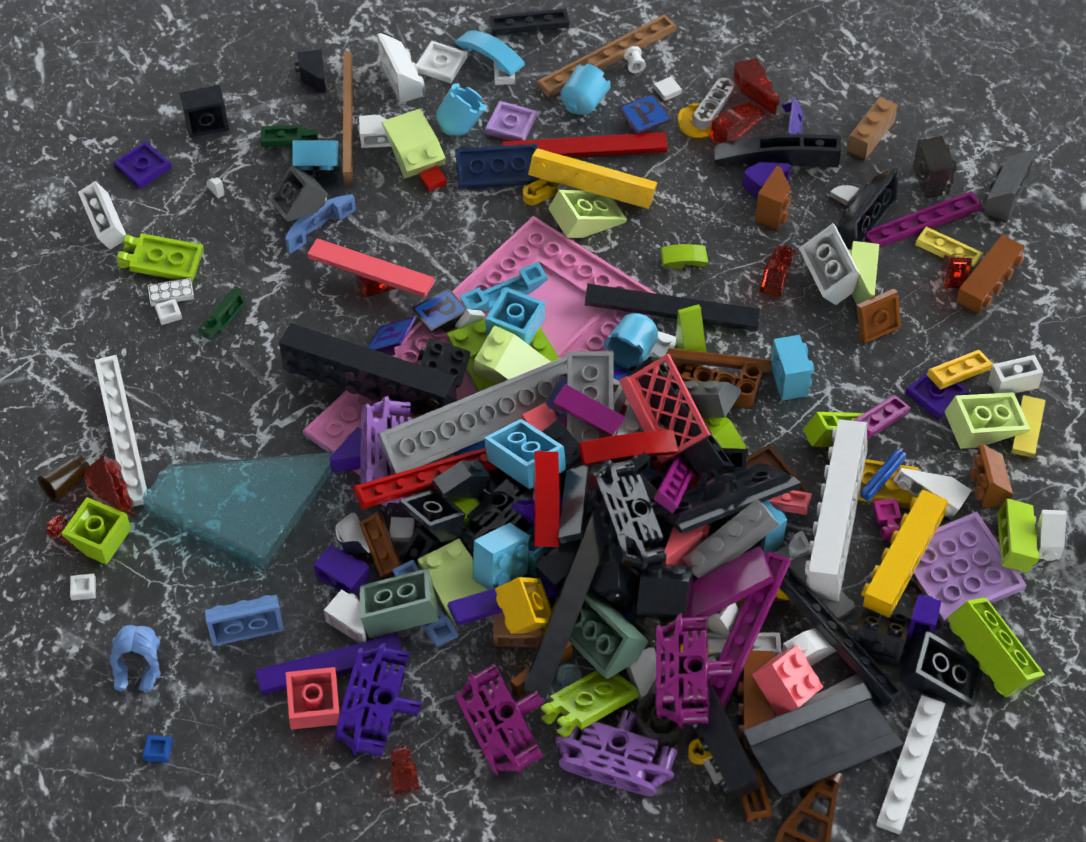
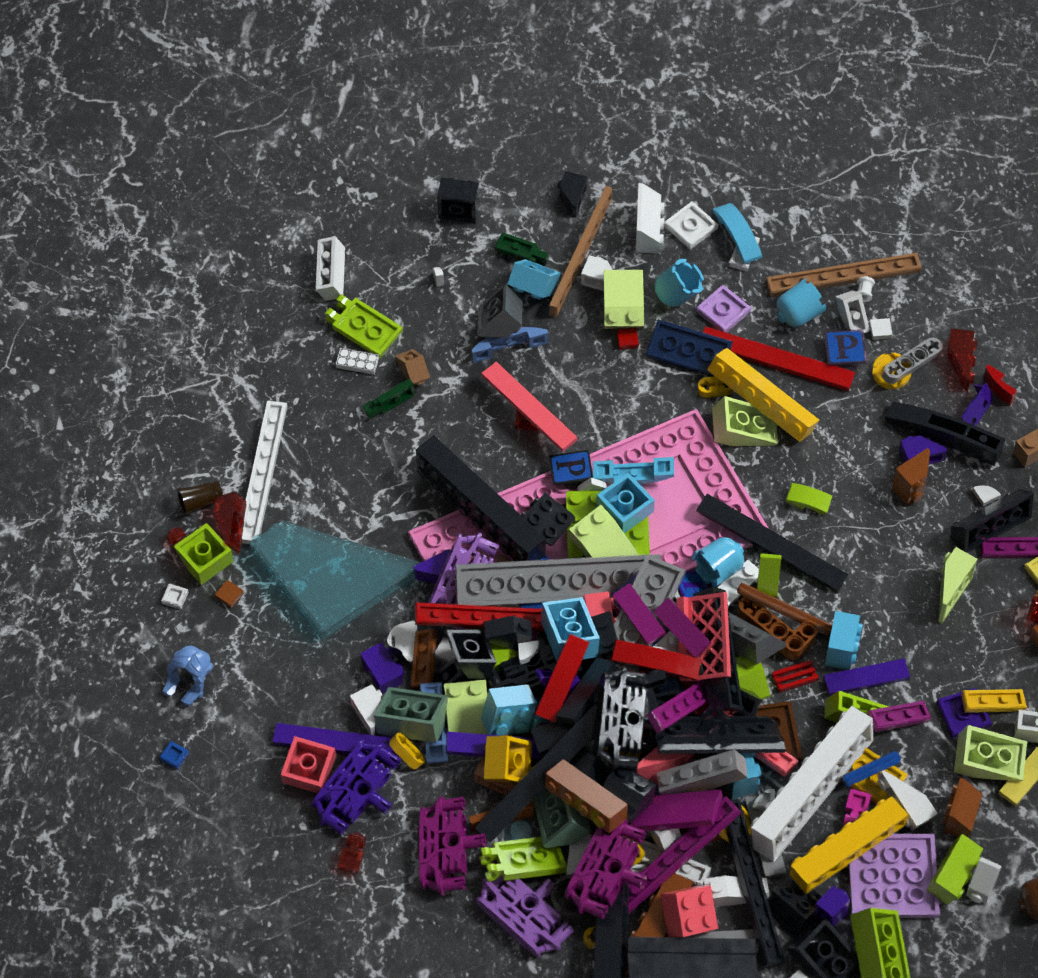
camera: 25 degrees right, 5 degrees up
(141, 561) = (229, 594): none -> dark orange tile
(142, 165) = (386, 230): dark purple tile -> none
(168, 311) = (347, 378): white tile -> none
(232, 274) = (413, 366): none -> medium nougat slope
(244, 620) = (285, 677): medium blue slope -> none
(391, 336) = (517, 476): piece -> none
(410, 642) = (407, 751): none -> yellow beam
(490, 491) = (527, 650): none -> white tile
(529, 21) = (788, 214): black plate -> none
(630, 605) = (586, 796): none -> brick
(634, 80) = (852, 311): none -> white slope
(639, 406) = (682, 627): none -> magenta tile
(735, 122) = (924, 386): clear red slope -> none
(754, 414) = (808, 665): none -> red tile
(777, 270) = (884, 544): clear red slope -> none
(806, 99) = (995, 382): none -> red slope
(828, 394) = (867, 677): none -> dark purple tile
(831, 264) = (927, 560): white slope -> none
(878, 316) = (946, 624): dark orange tile -> none

